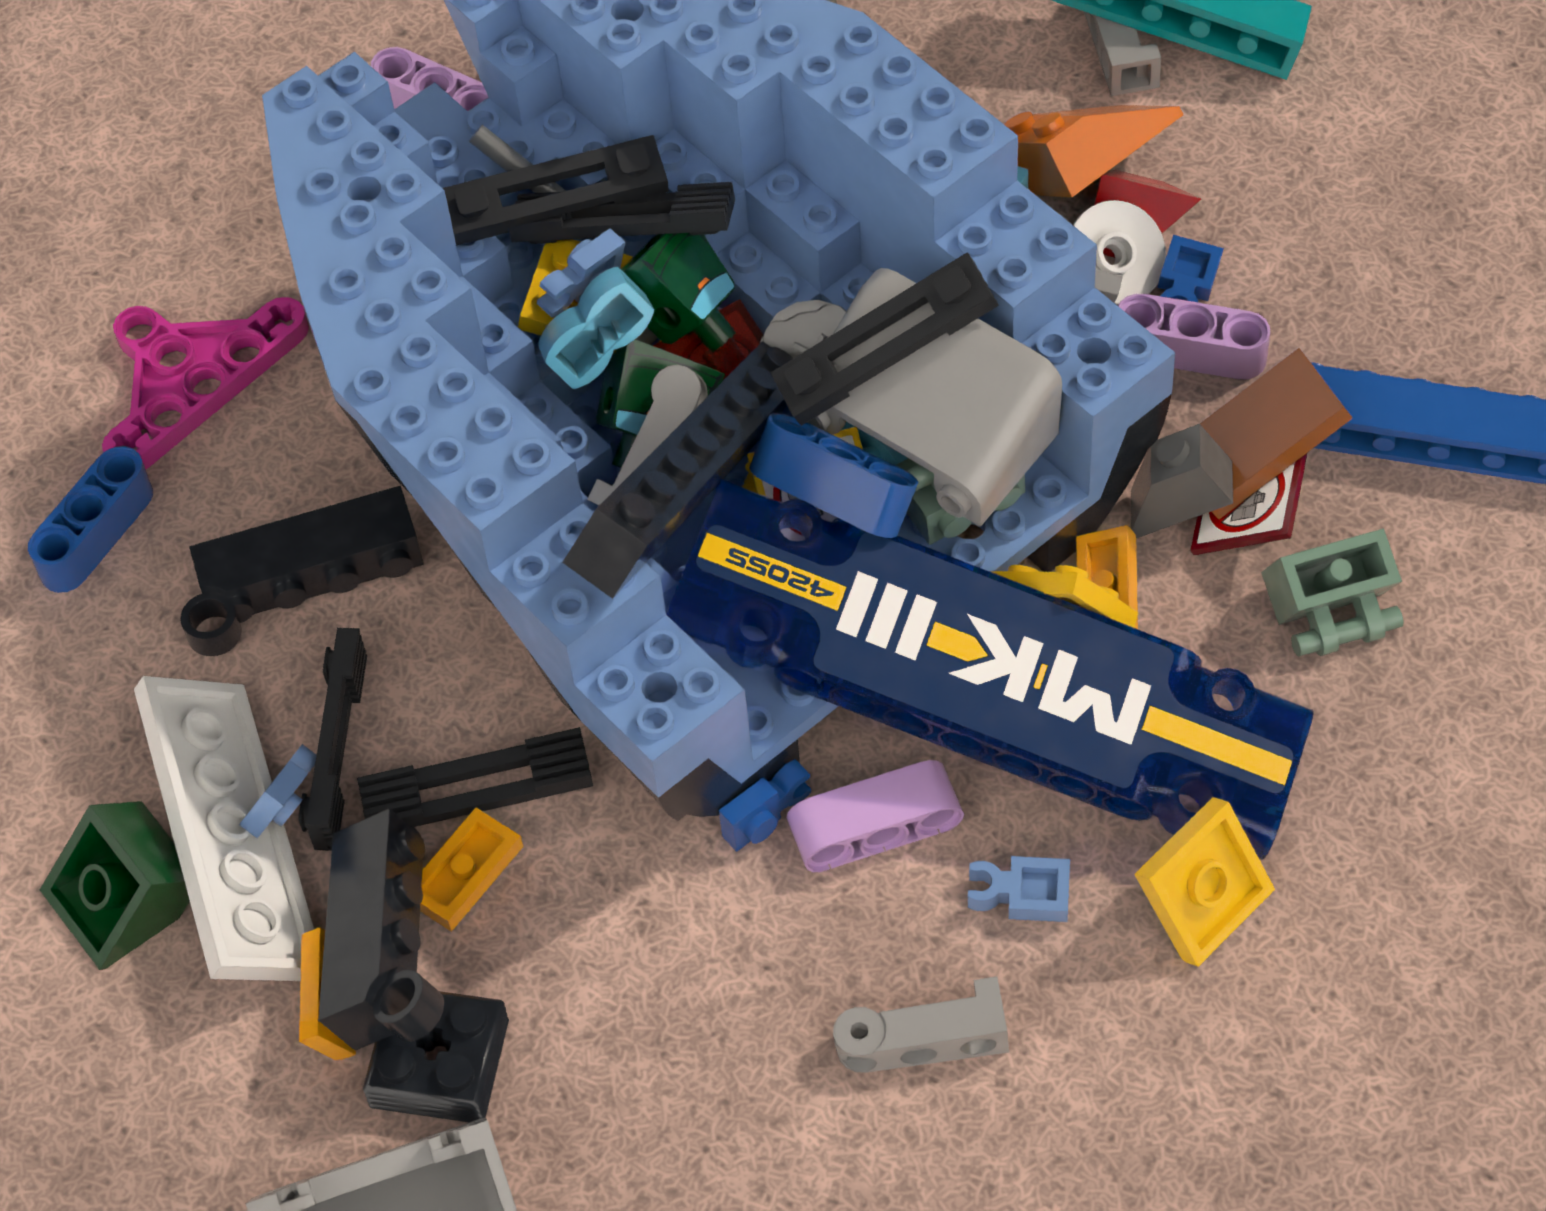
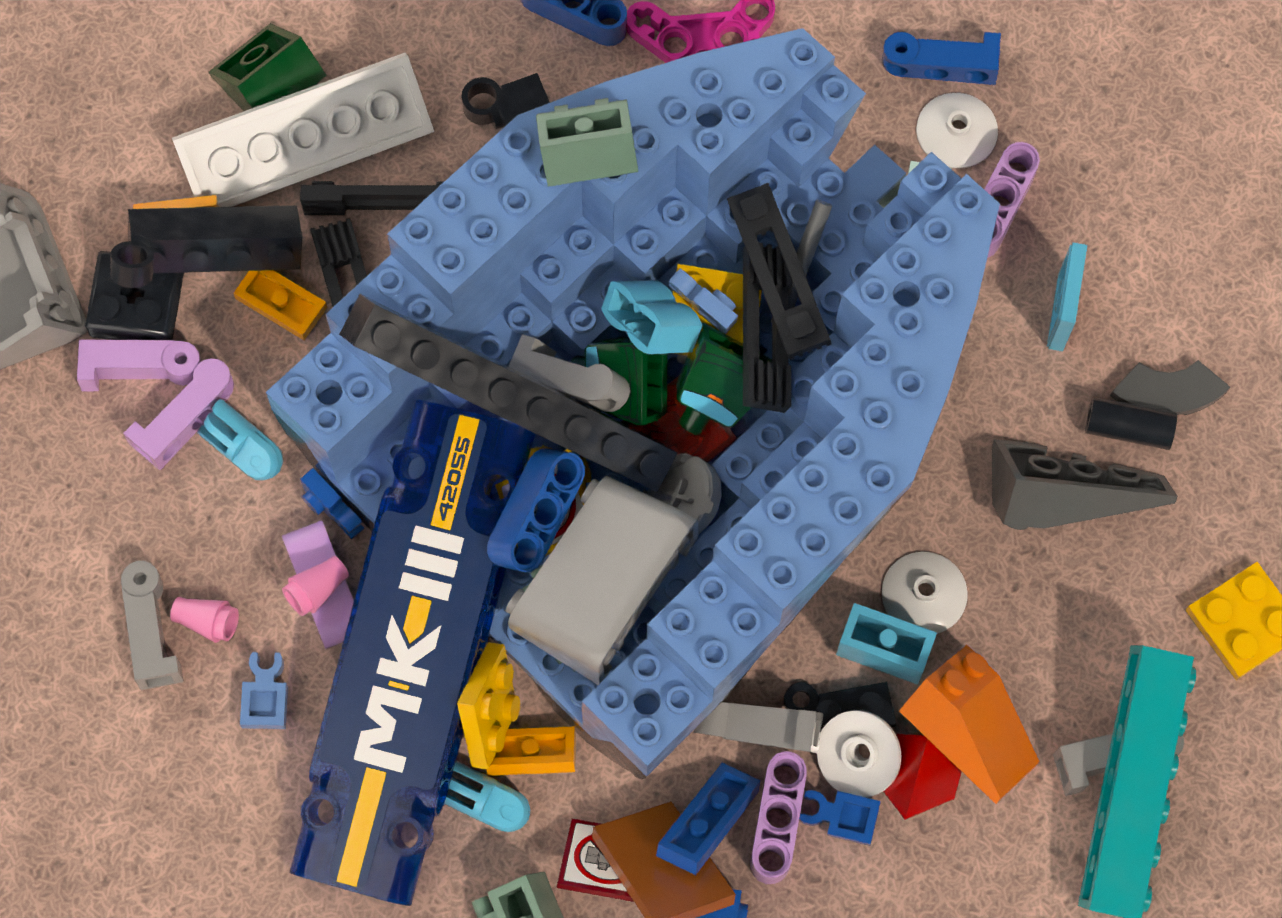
camera: 80 degrees right, 15 degrees up
(242, 149) = (943, 59): none -> blue leg
(279, 798) = (322, 164): medium blue plate -> none
(392, 280) = (586, 142): none -> sand green brick
(527, 1094) = (135, 361): none -> lavender leg
(650, 1011) = (183, 414): none -> lavender leg
(677, 904) = (241, 442): none -> medium azure arm
(893, 801) = (313, 586): none -> bright pink cone
(914, 958) = (209, 618): none -> bright pink cone
(957, 298) = (653, 574): black container -> none
(1179, 615) = (495, 803): none -> medium azure arm
(1180, 480) = (613, 807): dark grey slope -> none
(1205, 881) = (255, 821): yellow plate -> none
(1220, 391) = (708, 818): none -> blue plate

